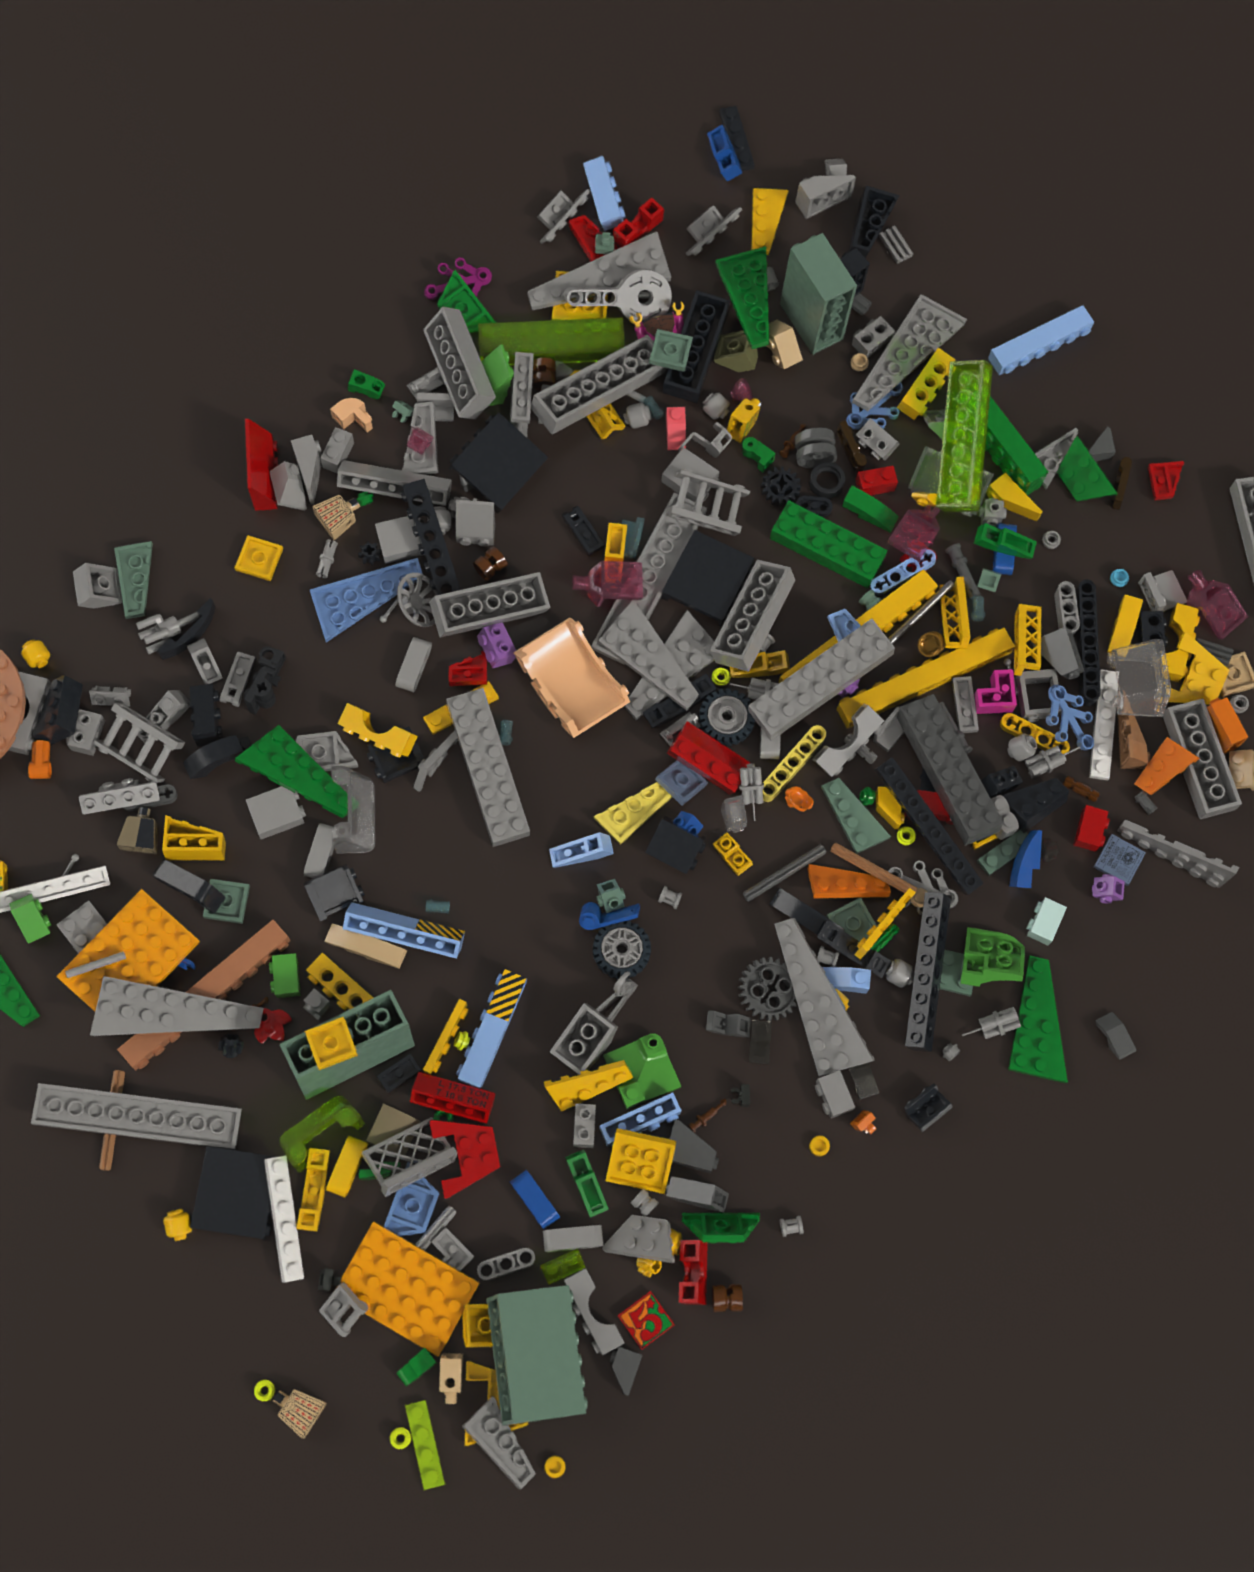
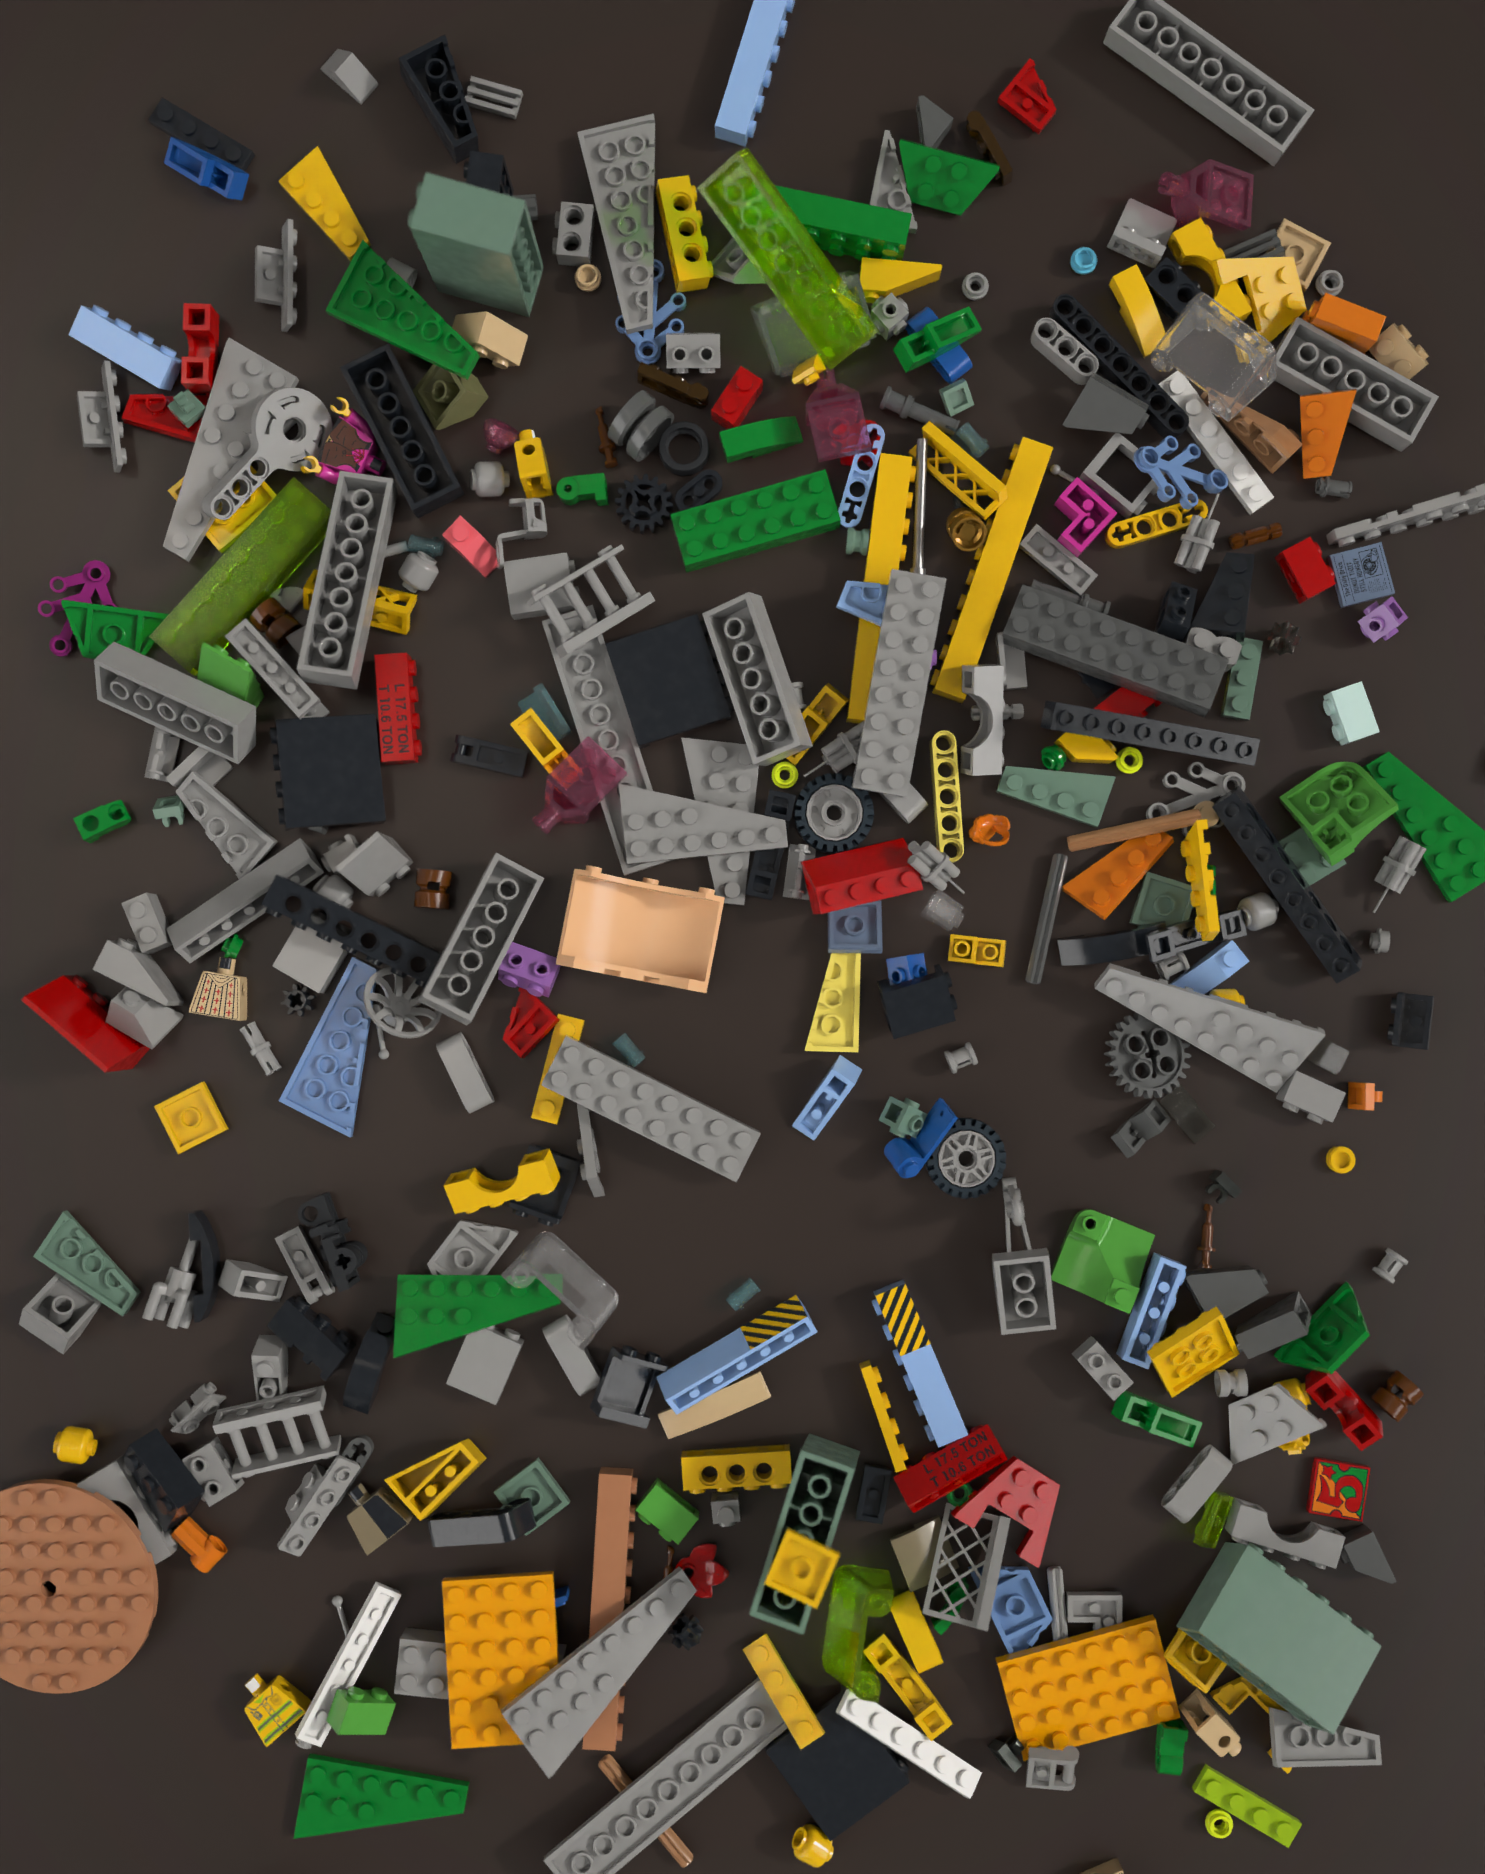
camera: 35 degrees left, 15 degrees up
(95, 964) = (479, 1703): light grey bar -> none
(248, 1125) = (783, 1691): none -> yellow plate
(351, 410) = (115, 867): light nougat brick -> none
(419, 440) = (223, 828): clear pink slope -> none
(461, 1040) = (901, 1402): neon yellow plate -> none
(495, 1263) = (1158, 1584): light grey beam -> none
(535, 1199) = (1124, 1483): blue beam -> none
(555, 1467) = (1385, 1705): yellow tile -> none
(561, 467) = (397, 708): none -> red brick
(582, 1087) = (1069, 1328): yellow wing -> none
(670, 350) = (384, 466): sand green plate -> none
(823, 192) = (359, 113): light grey slope -> none
(1020, 639) = (1052, 434): yellow fence -> none
(1022, 747) = (1159, 551): light grey head -> none
(1026, 860) = (1276, 670): blue slope -> none

